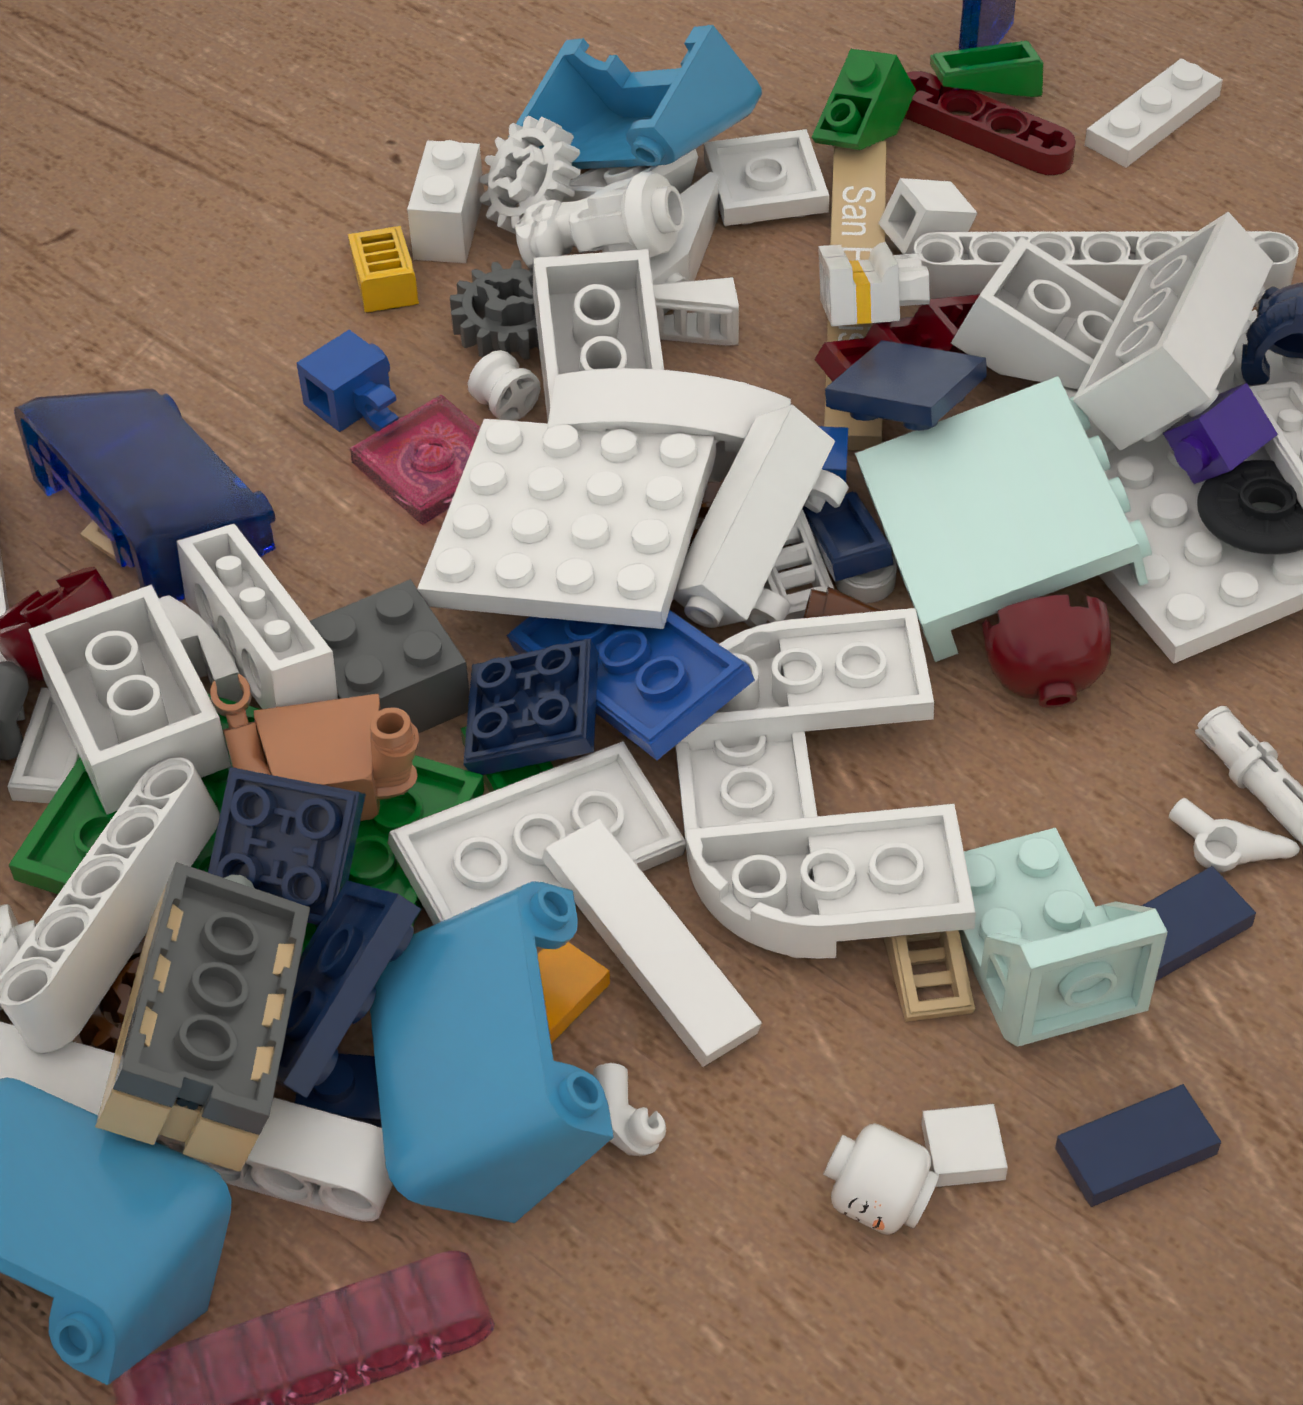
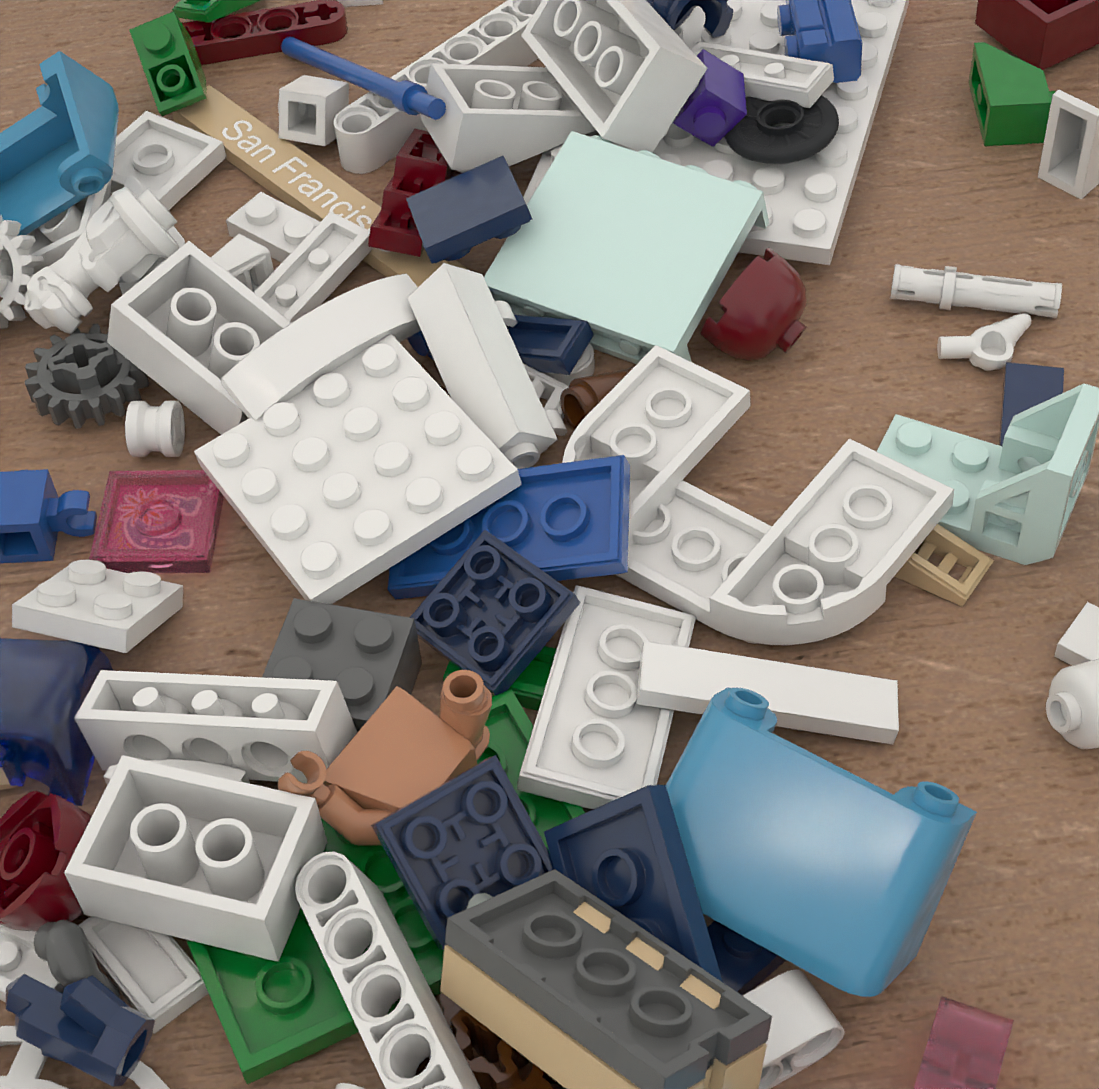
camera: 45 degrees left, 0 degrees up
(306, 483) = (98, 606): none -> white plate
(752, 349) = (315, 267): none -> white plate
(791, 305) = (271, 225): none -> white plate
(870, 288) = (349, 172): white hips -> none
(981, 250) = (404, 94): none -> blue bar

